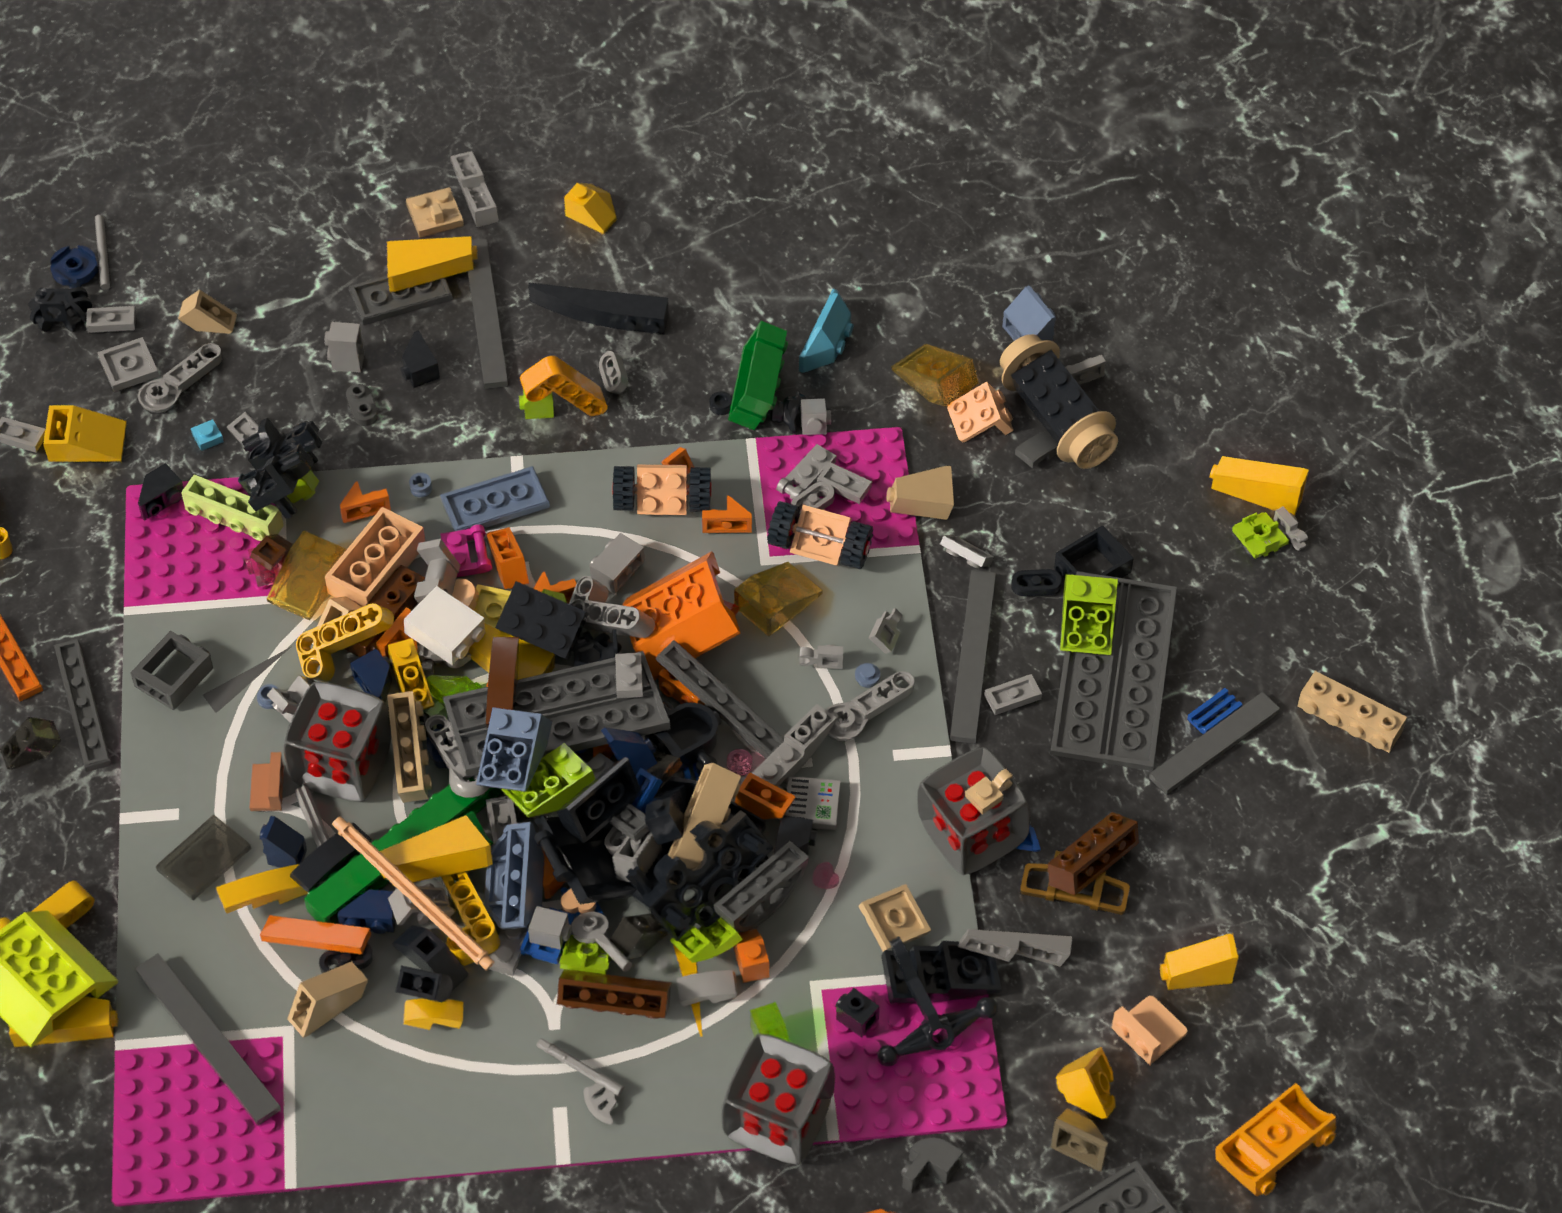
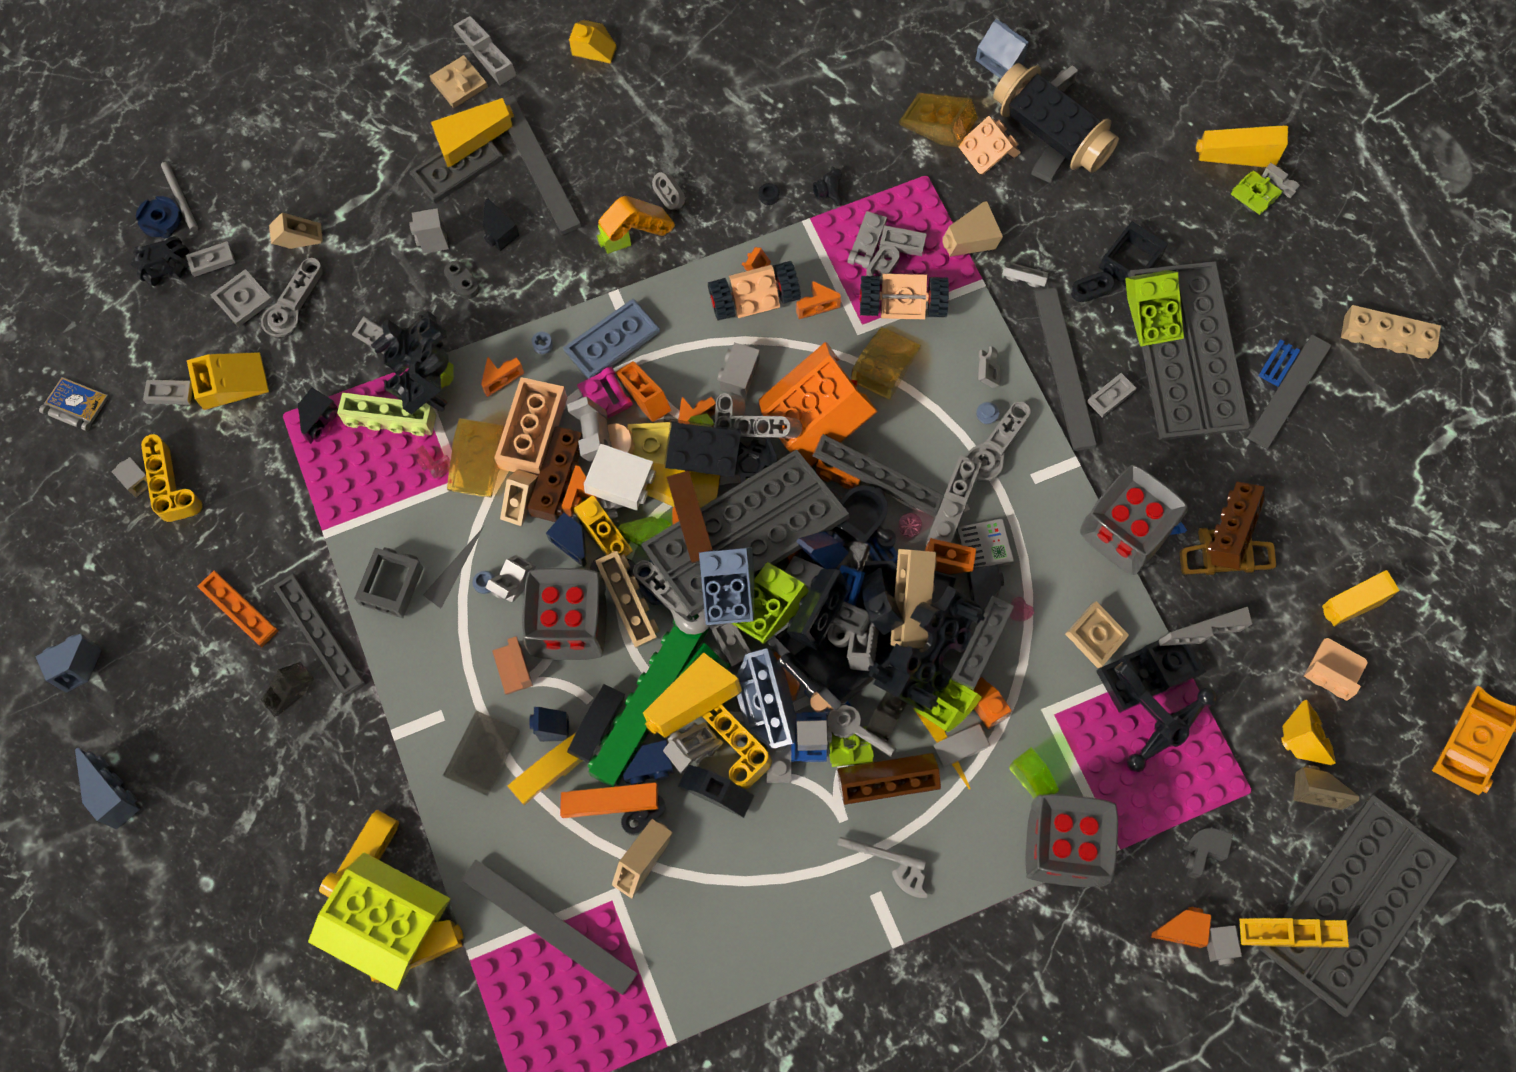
camera: 15 degrees left, 15 degrees up
(207, 435) = (336, 345): medium azure plate -> none
(271, 551) = (438, 445): reddish brown slope -> none
(311, 815) = (565, 687): light grey axle -> none
(371, 621) = (534, 510): yellow beam -> none
(410, 890) = (688, 745): light nougat piece -> none
(424, 984) = (722, 821): black brick -> none
(425, 1012) = (737, 842): yellow slope -> none
(604, 308) = (638, 132): black slope -> none
(629, 675) = (796, 478): light grey plate -> none
(758, 375) = (795, 161): green piece -> none
(814, 416) = (854, 186): light grey brick -> none
(825, 657) = (948, 406): light grey plate -> none
(828, 334) = (837, 105): medium azure wedge -> none
(857, 1012) = (1096, 730): black brick -> none
(987, 794) = (1153, 508): tan plate -> none

